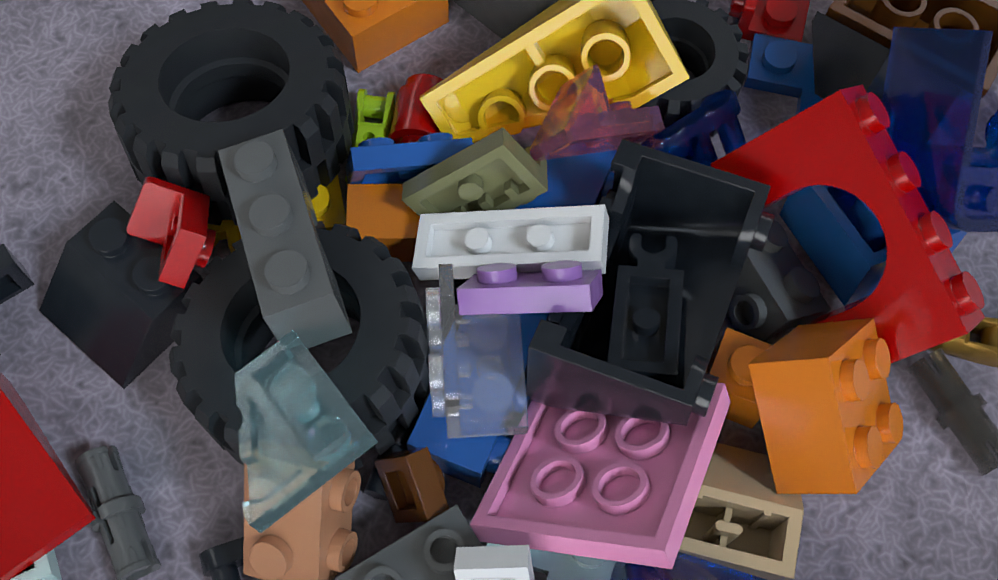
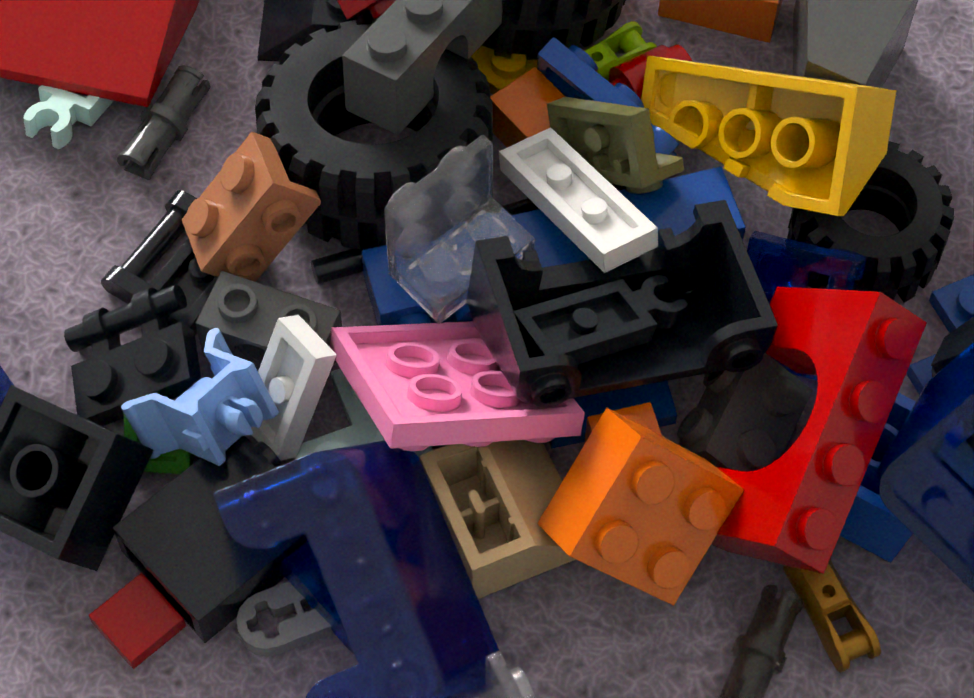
camera: 55 degrees right, 5 degrees down
(292, 430) = (289, 141): clear light blue wing -> none
(412, 485) = (339, 279): reddish brown plate -> none
(556, 289) = (550, 239): medium lavender plate -> none
(586, 123) = (715, 172): clear pink slope -> none

